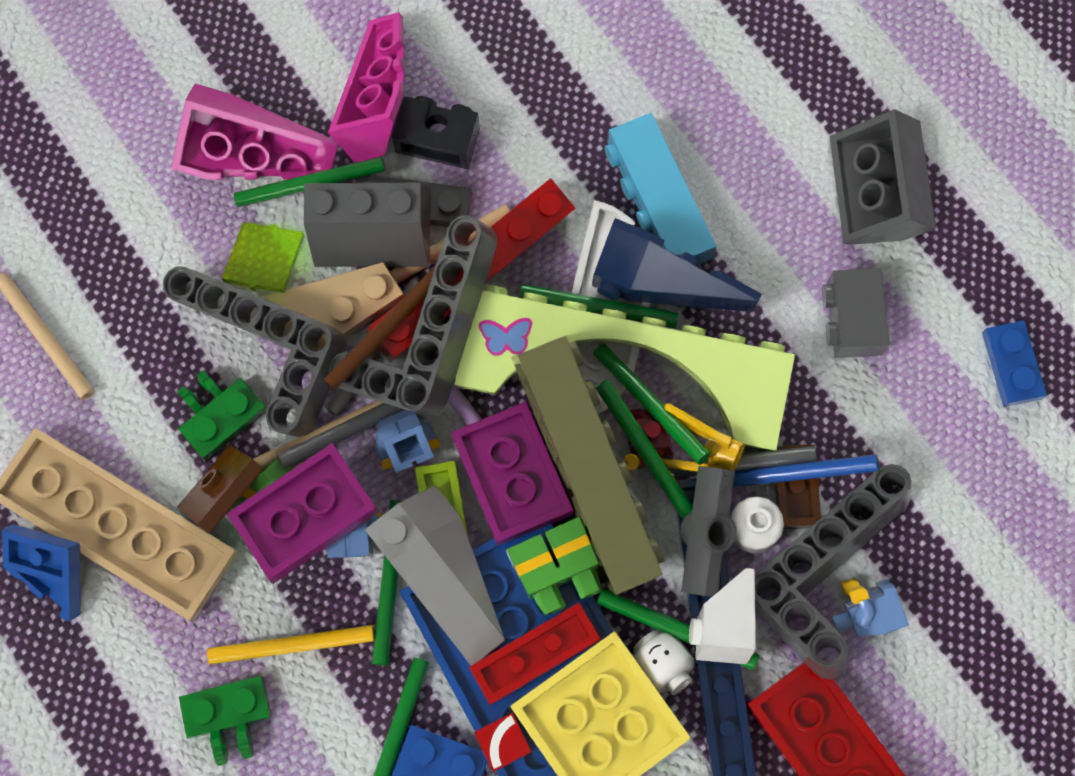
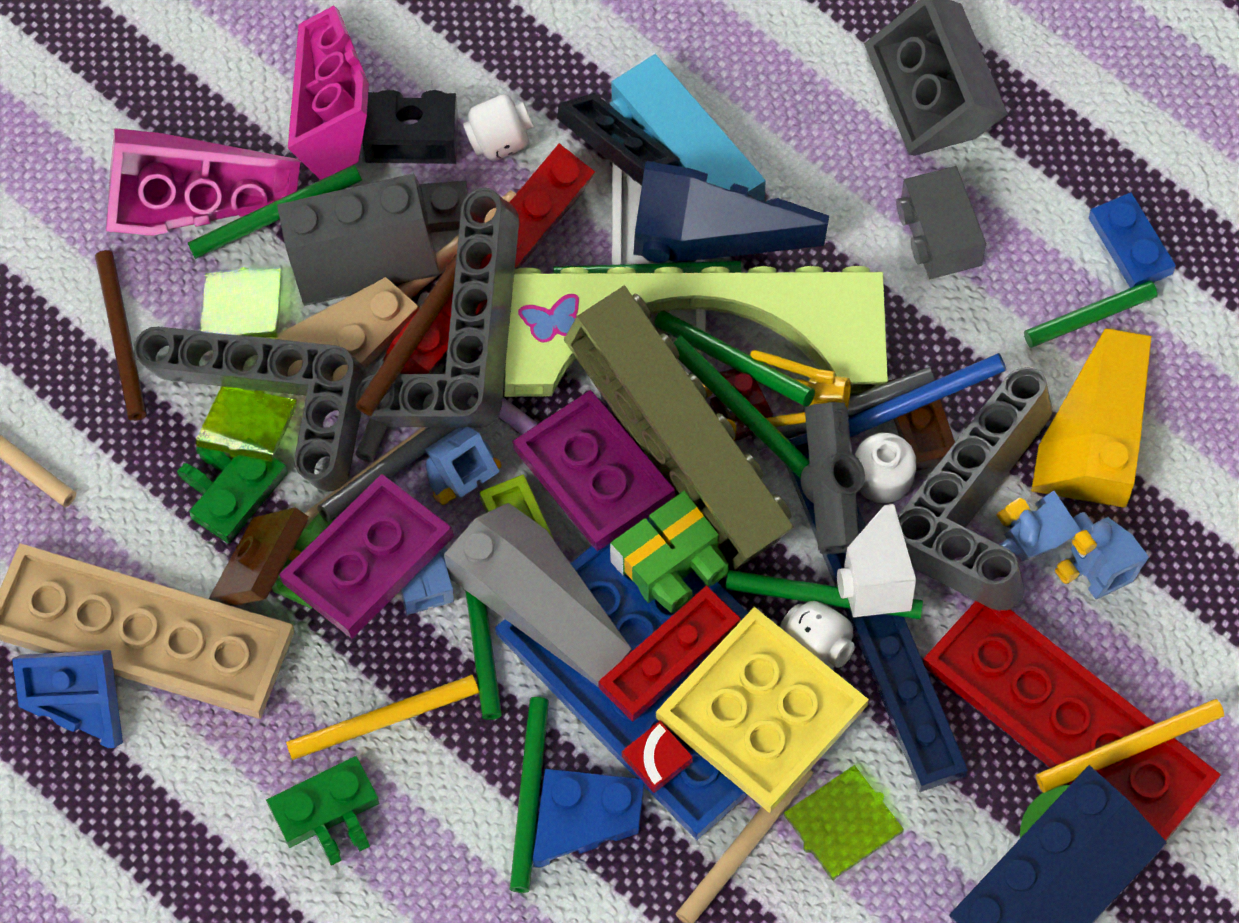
camera: 15 degrees left, 10 degrees down
(162, 260) = (120, 335): none -> reddish brown piece
(241, 363) = (246, 423): none -> clear neon green piece
(507, 148) = (498, 127): none -> white head
(602, 180) = (613, 135): none -> black plate
(922, 644) = (1104, 555): none -> medium blue piece
(947, 525) = (1098, 428): none -> yellow wedge
(963, 421) = (1090, 314): none -> green bar

